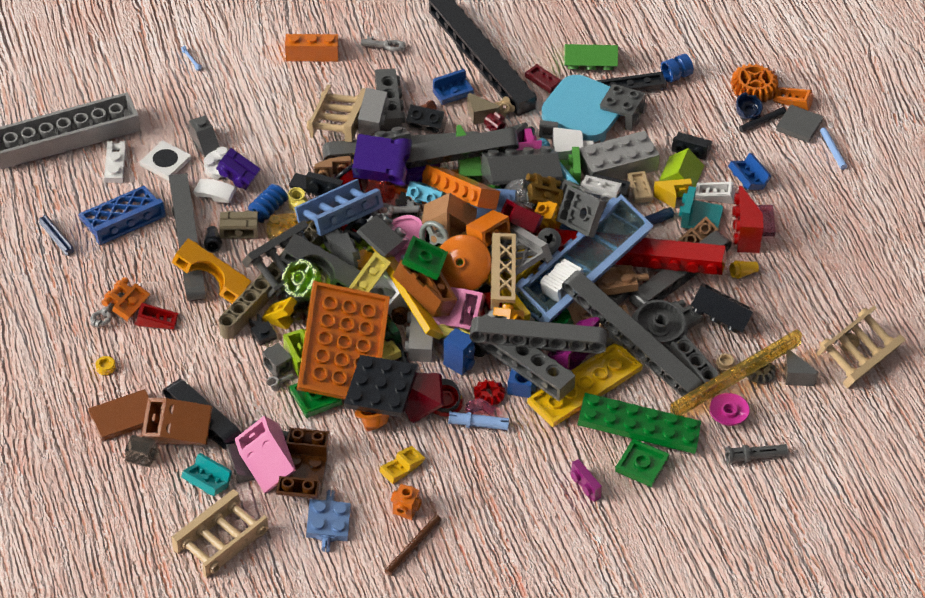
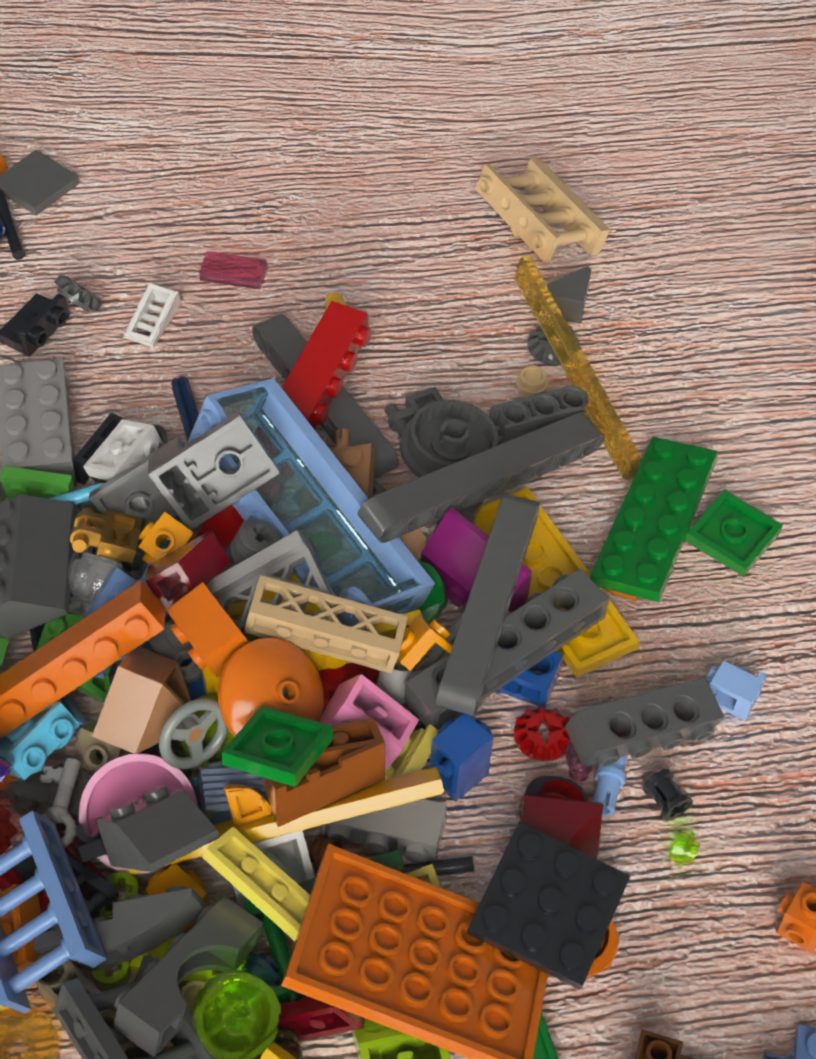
camera: 80 degrees left, 5 degrees up
(404, 464) = (702, 914): yellow slope -> none
(435, 452) = (683, 848): none -> clear neon green plate
(463, 443) = (667, 794): none -> black bush
(483, 396) = (644, 723): none -> dark grey brick
(534, 467) = (735, 688): none -> light blue brick
(552, 283) = (348, 546): white brick -> none
(586, 480) = (769, 617): magenta plate -> none
(640, 187) = (94, 409): tan plate -> none
(669, 190) = (138, 370): yellow slope -> none
(683, 166) = (89, 350): lime slope -> none
(695, 211) = (199, 343): teal bracket -> none
(699, 232) = (246, 354): medium nougat slope -> none
(712, 161) = (77, 293): none -> dark grey gear
(721, 308) = (428, 353): black slope -> none
(729, 409) = (637, 394): dark pink dish -> none
(747, 224) = (248, 280): red slope -> none
(747, 453) = (726, 393): dark grey pin -> none
(750, 173) = (130, 258): blue bracket -> none
(834, 150) = (105, 156): light blue bar -> none

